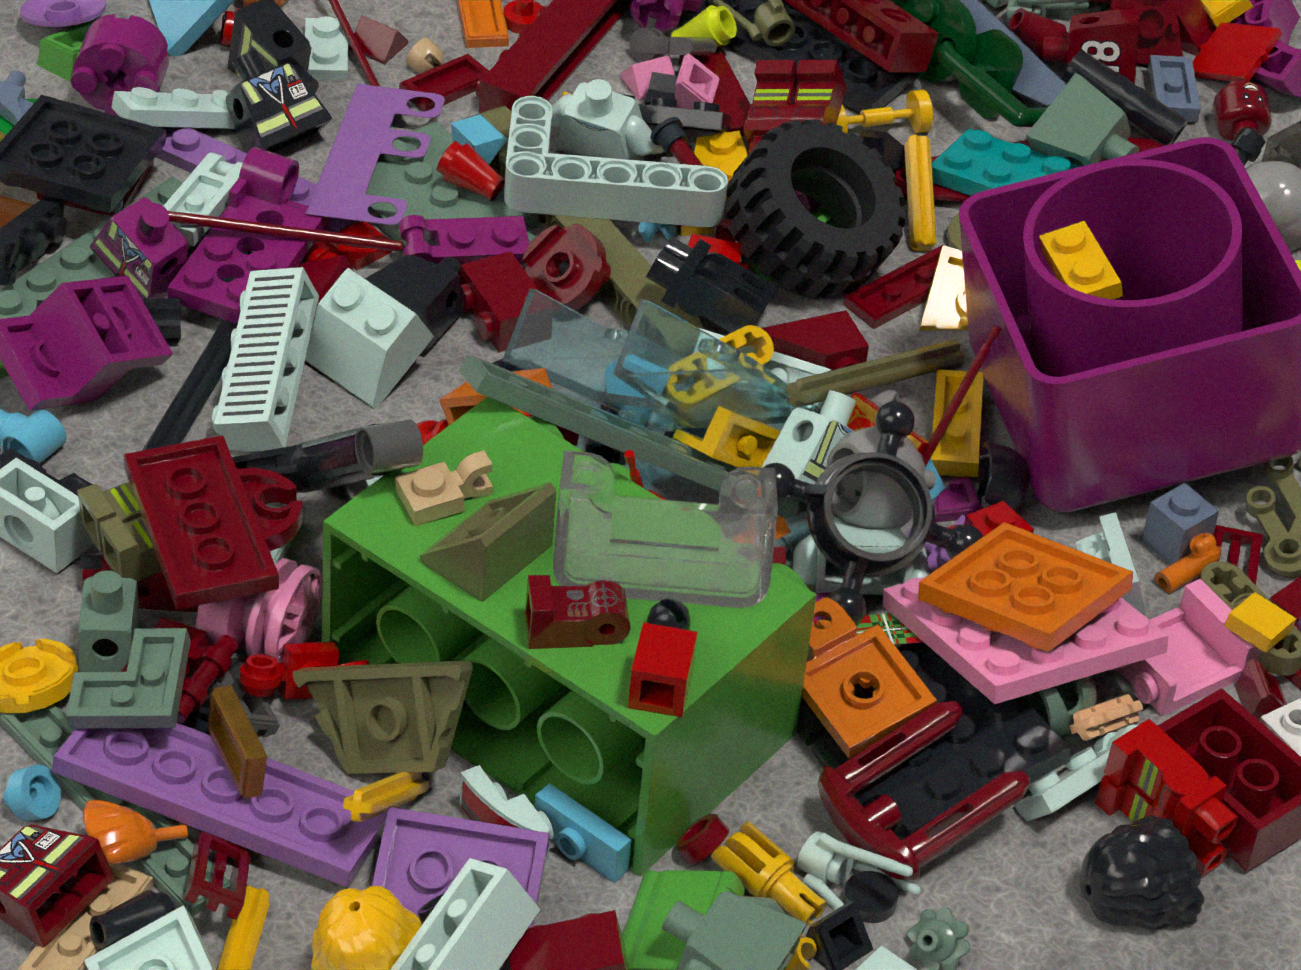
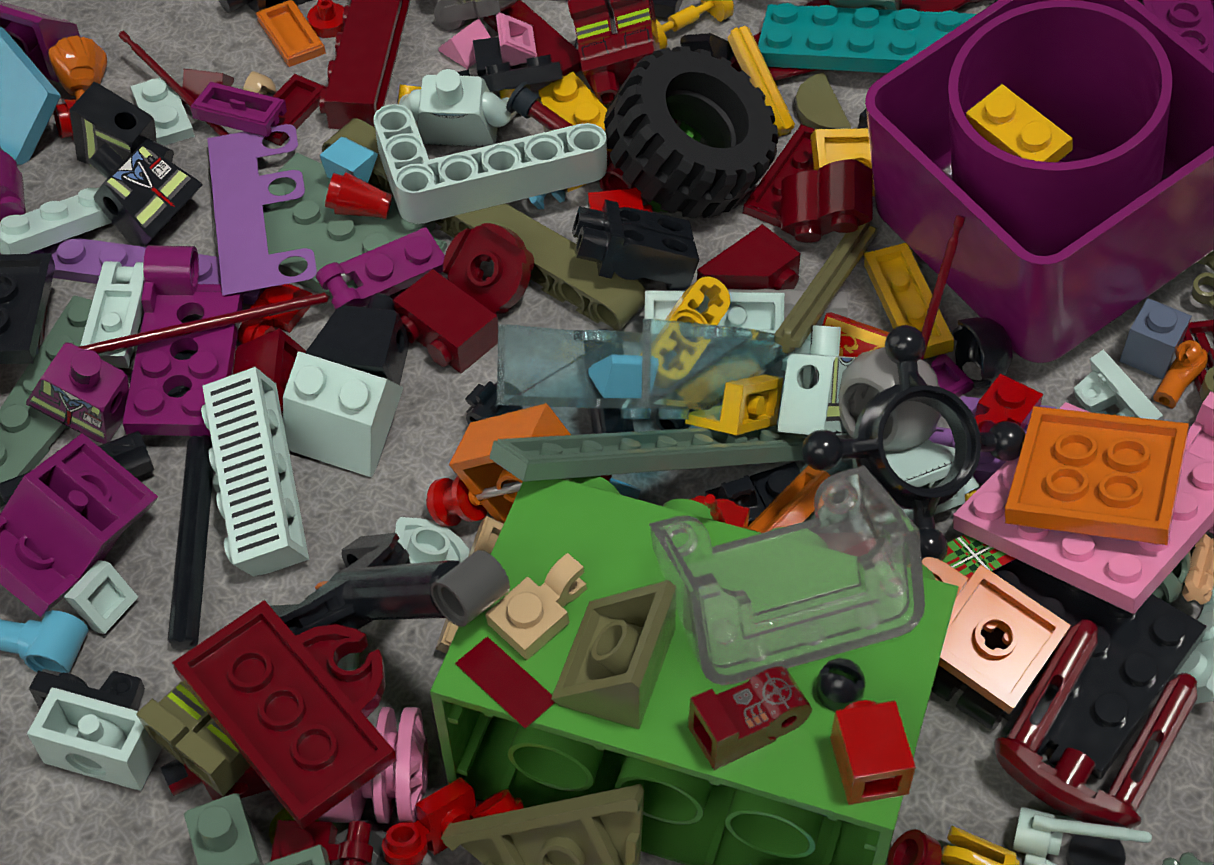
camera: 15 degrees left, 10 degrees up
(88, 416) = (101, 596): none -> light aqua tile
(389, 534) = (506, 682): none -> dark red sticker
(397, 66) = (238, 109): none -> magenta tile
(919, 309) = (827, 200): none -> dark red brick

